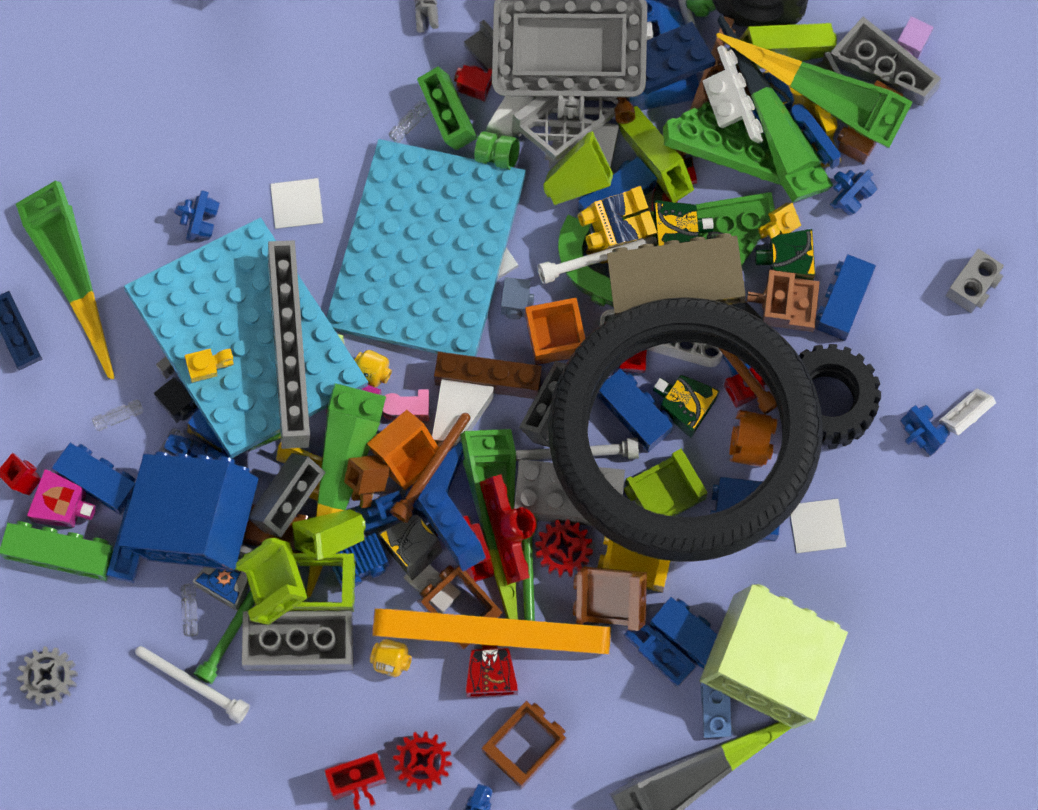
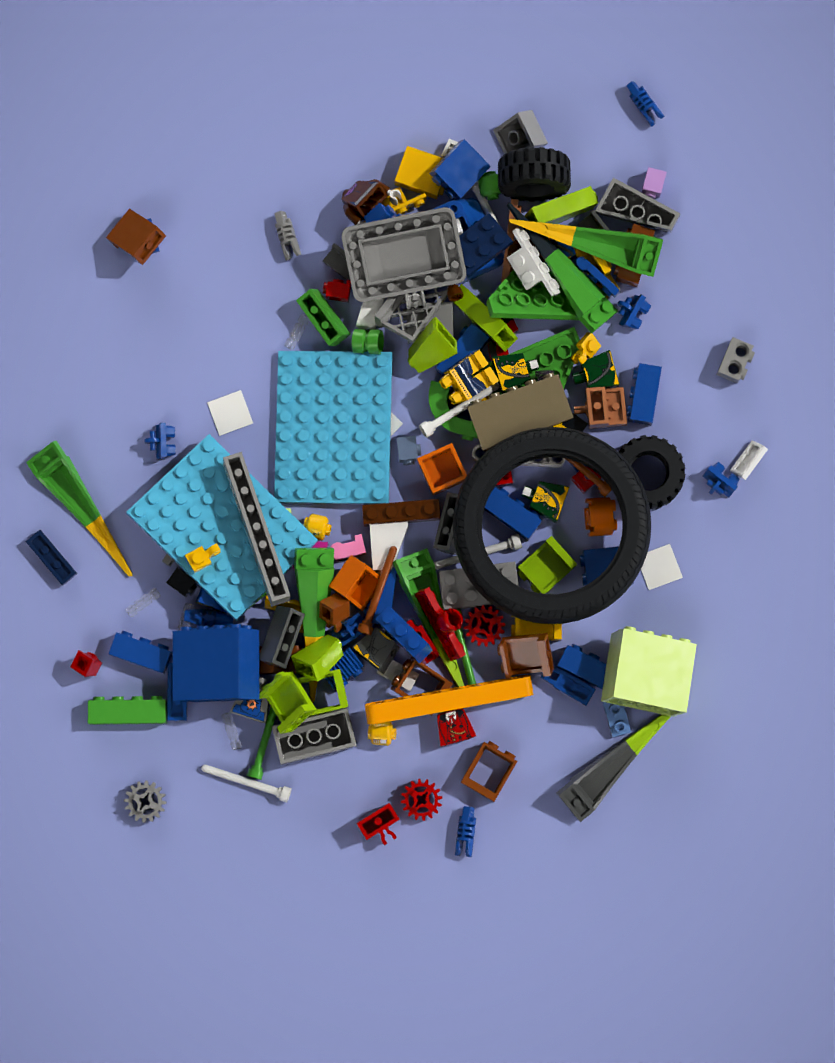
camera: 10 degrees left, 10 degrees up
(59, 502) = (119, 676): dark pink torso -> none

